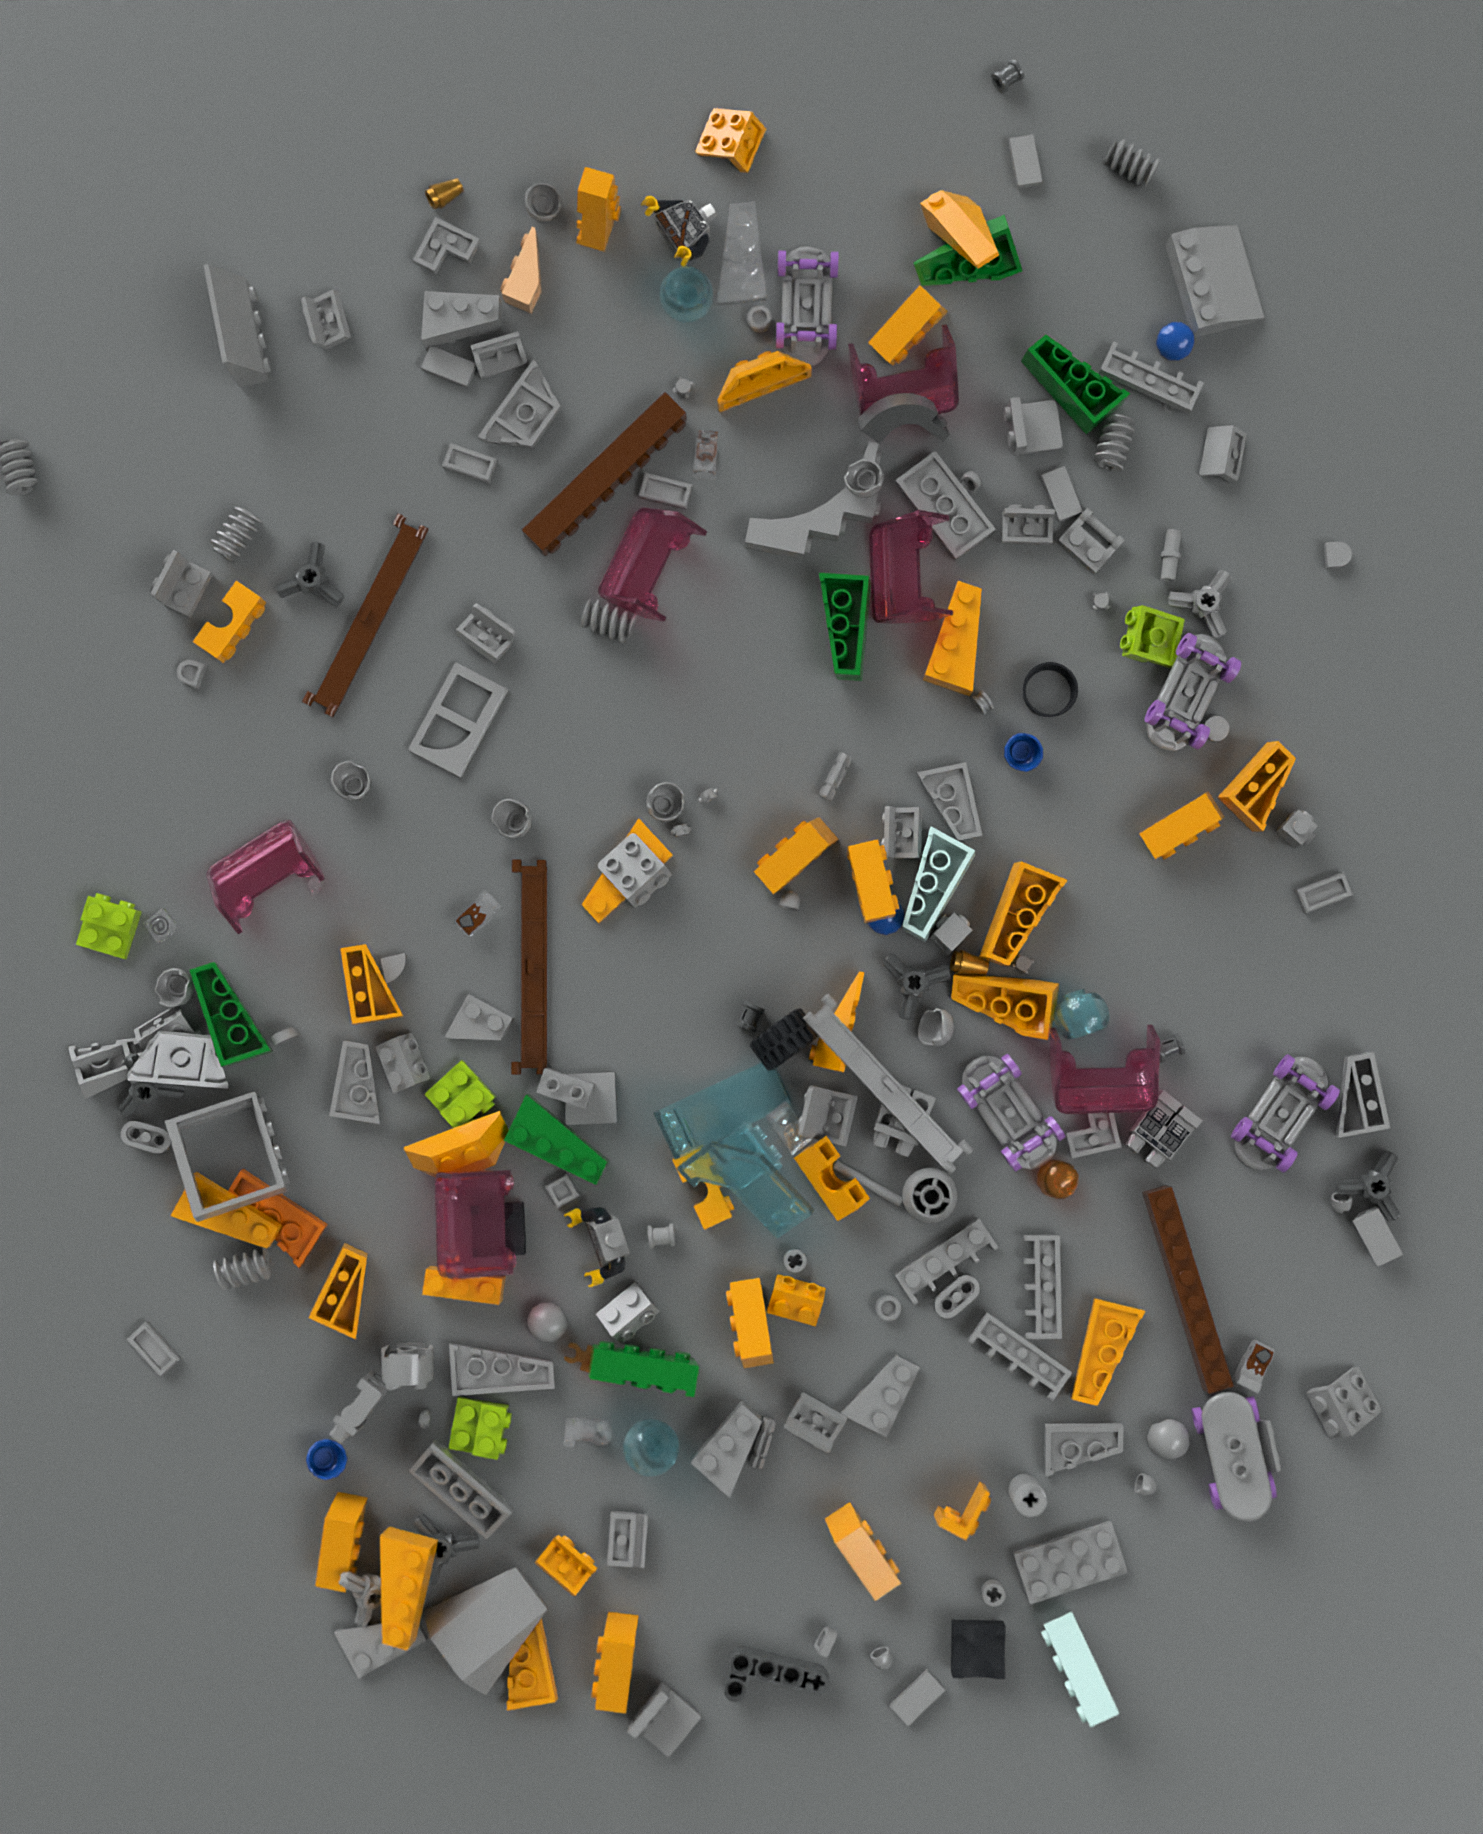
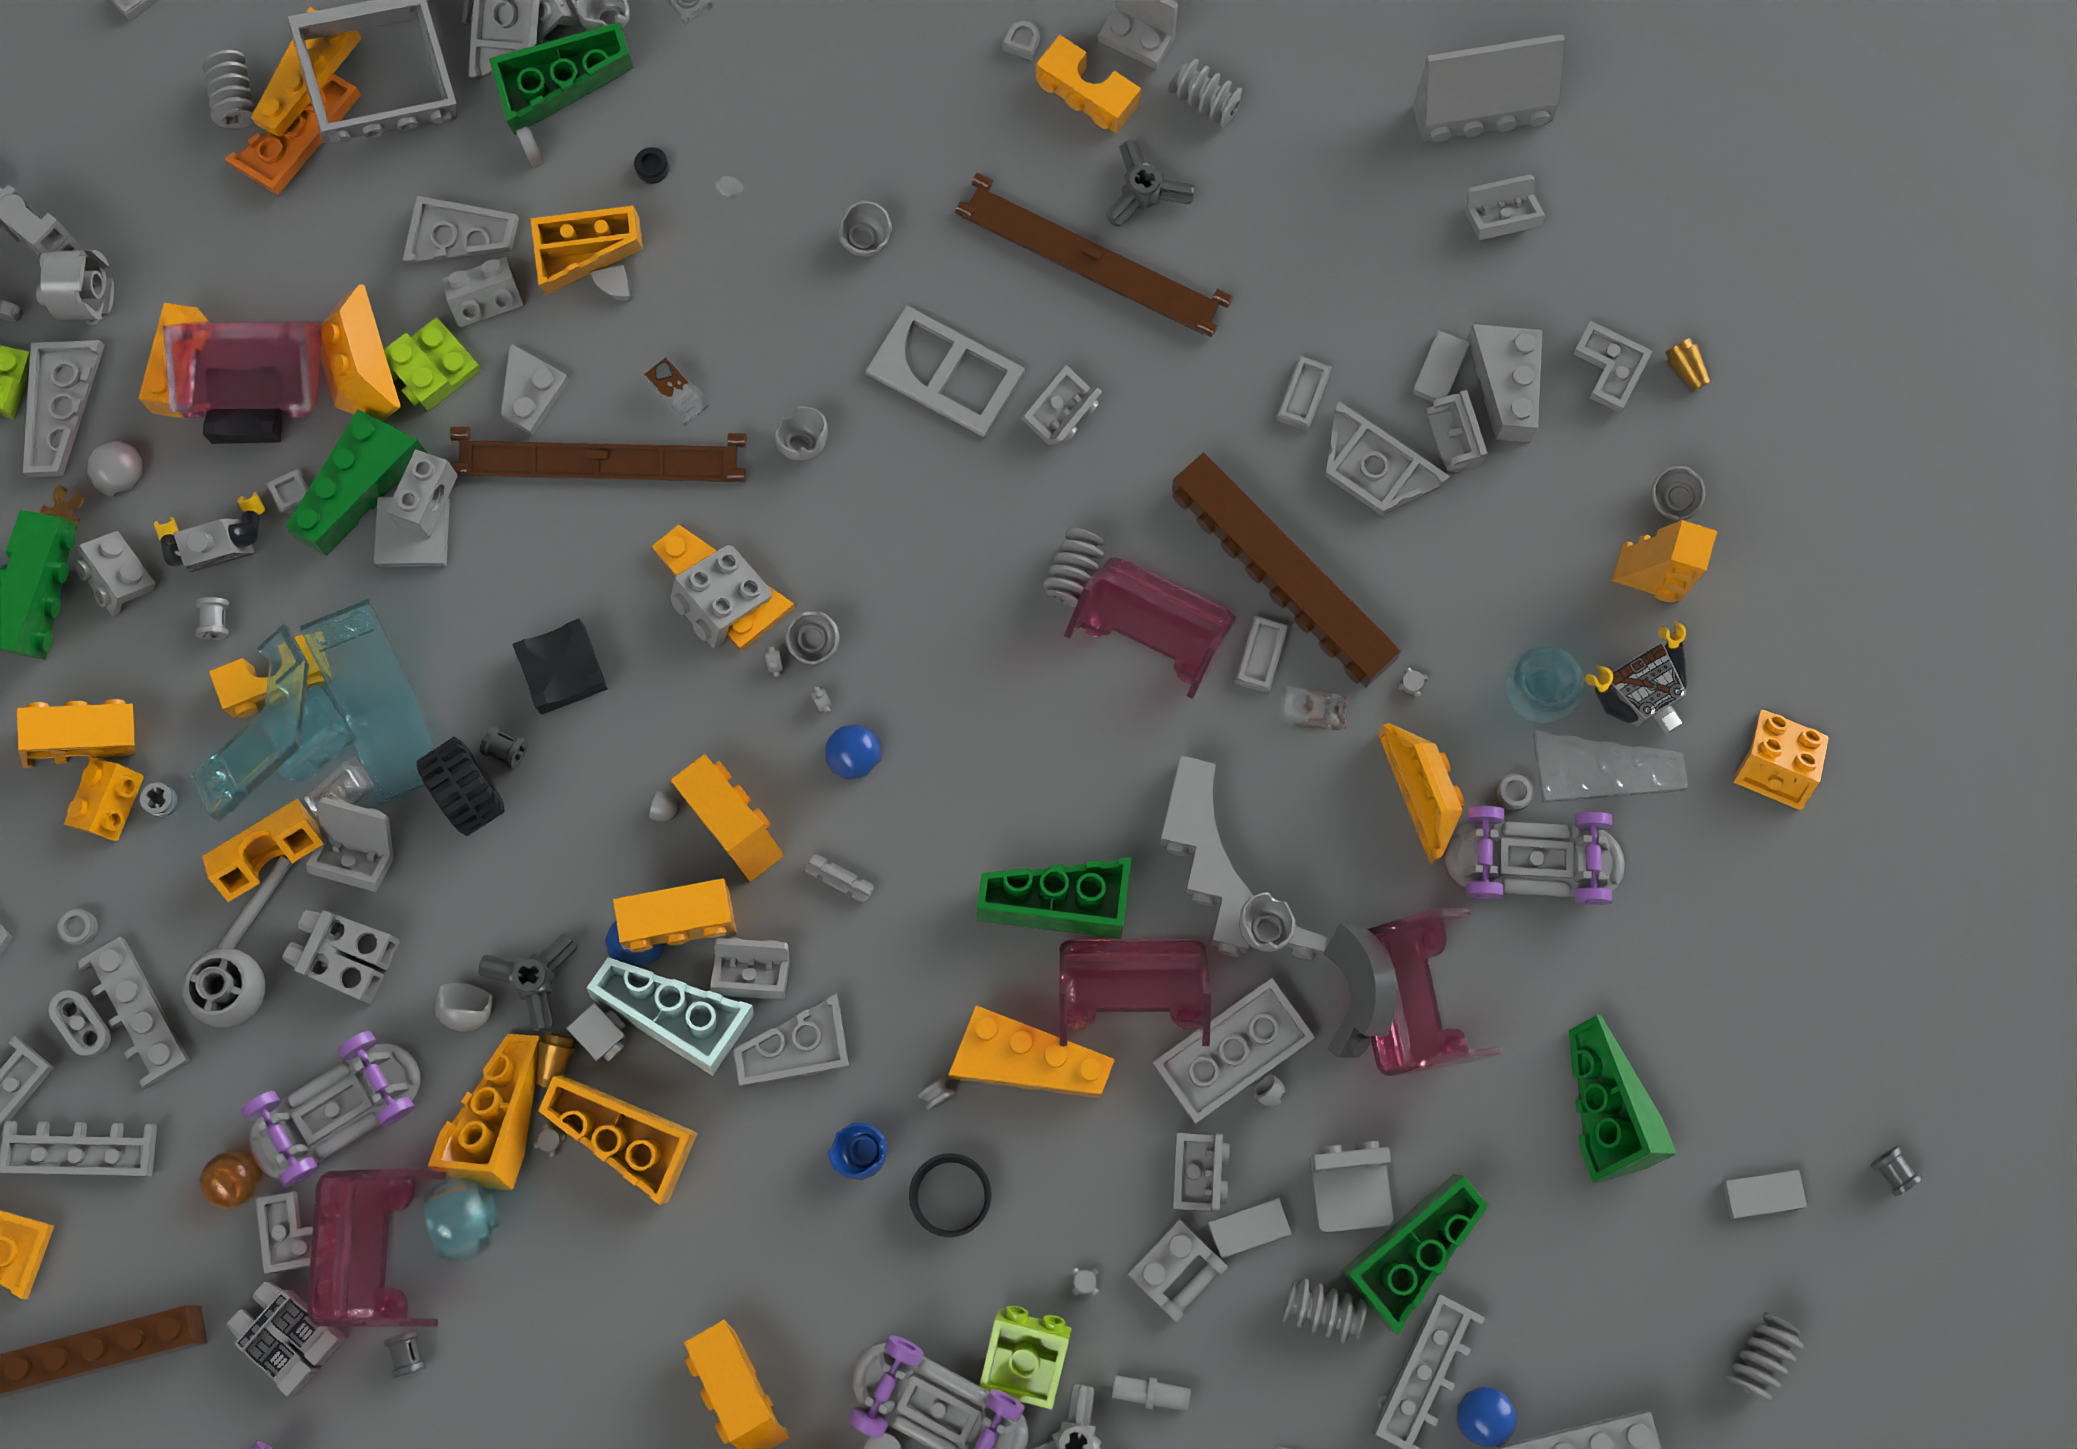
camera: 90 degrees right, 10 degrees down
(257, 868) = (752, 109): clear pink windscreen -> none
(298, 945) = (651, 165): none -> black tile
(342, 1292) = (180, 208): light orange wedge -> none
(524, 282) = (1571, 470): light nougat slope -> none
(691, 980) = (560, 667): none -> black brick
(745, 771) = (853, 751): none -> blue hair
(822, 1054) = (450, 859): light orange wedge -> none
(885, 1086) = (375, 922): light grey piece -> none
(907, 326) = (1504, 1004): light orange wedge -> none
(961, 226) = (1657, 1087): light orange wedge -> none

